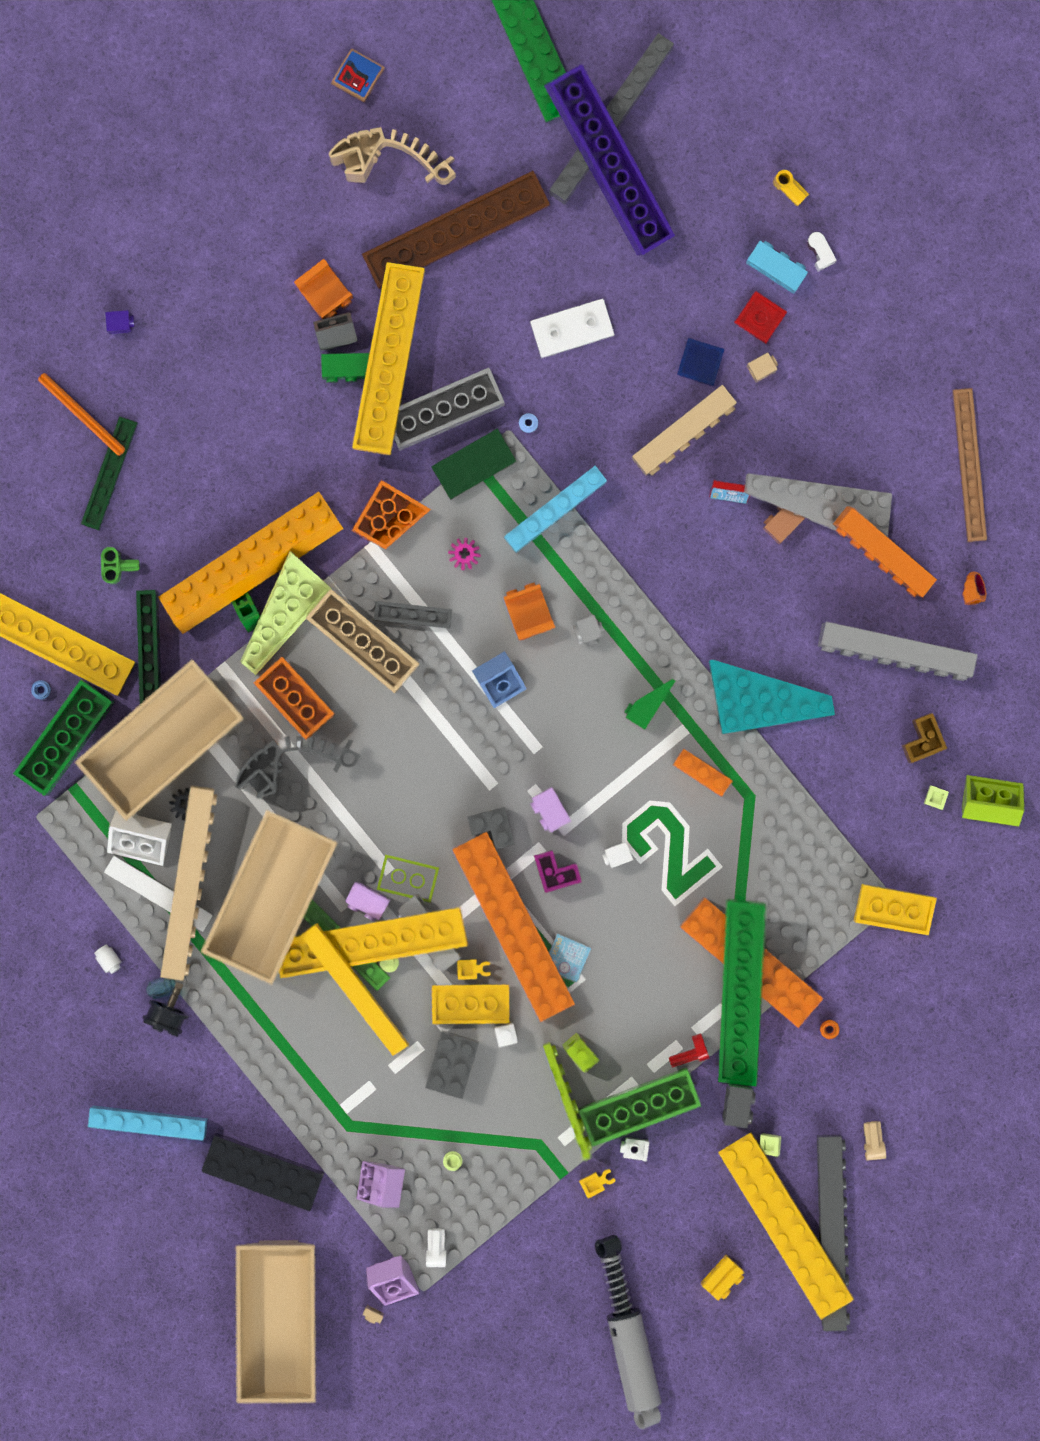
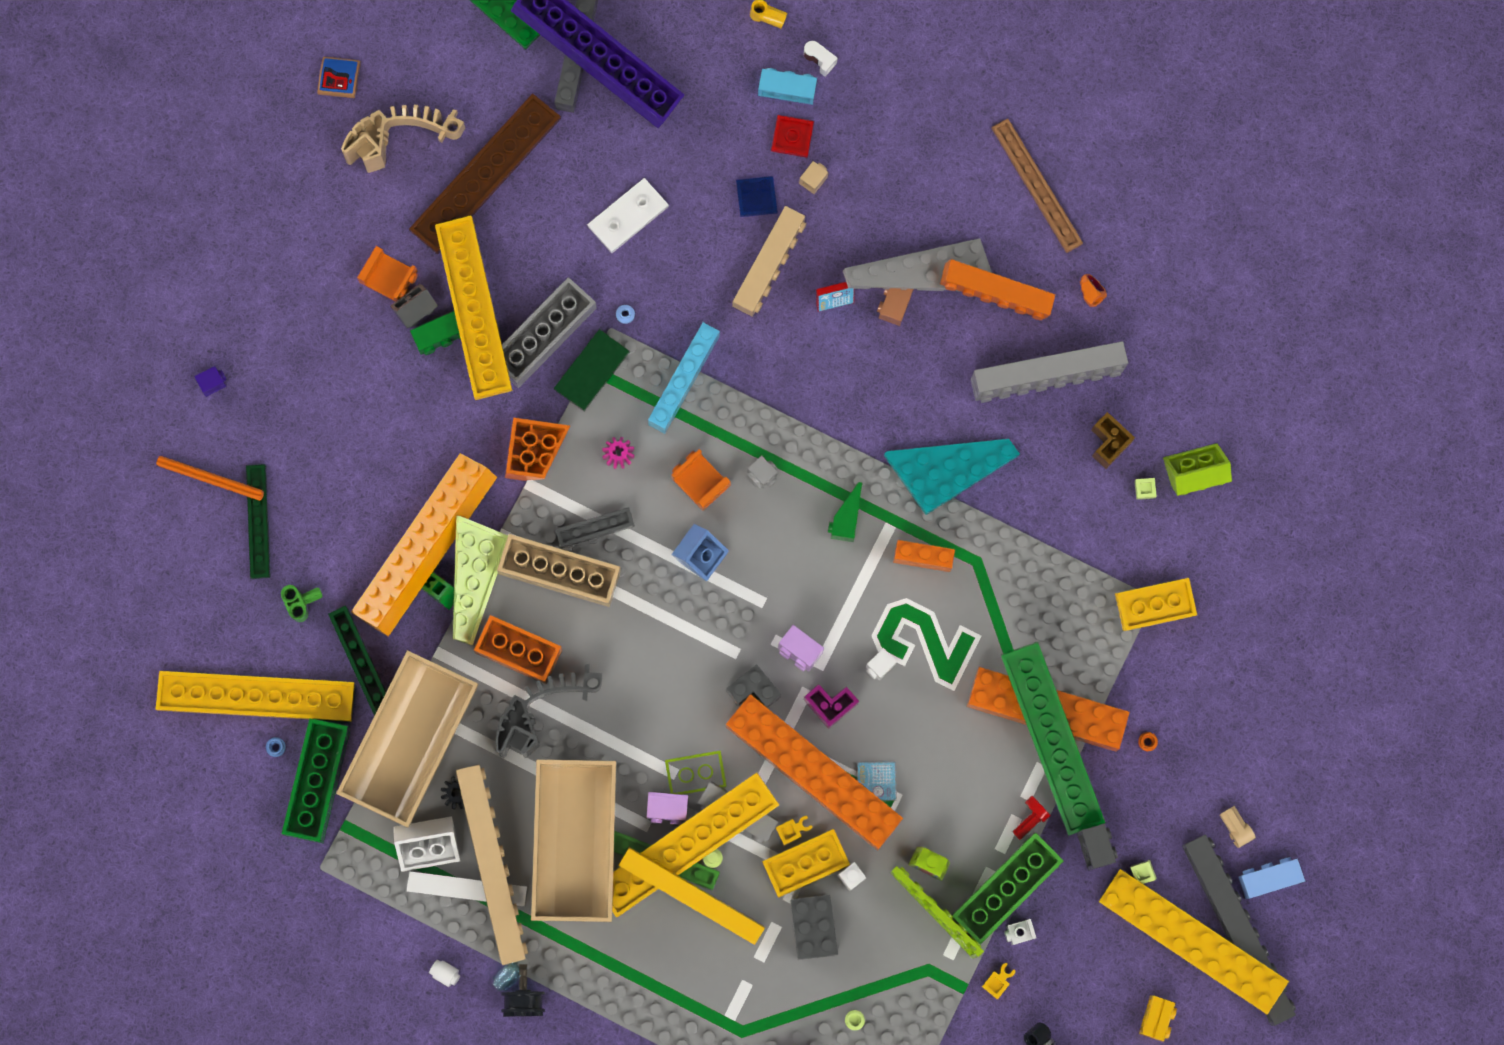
camera: 25 degrees left, 10 degrees down
(883, 1200) = (1271, 877): none -> light blue brick

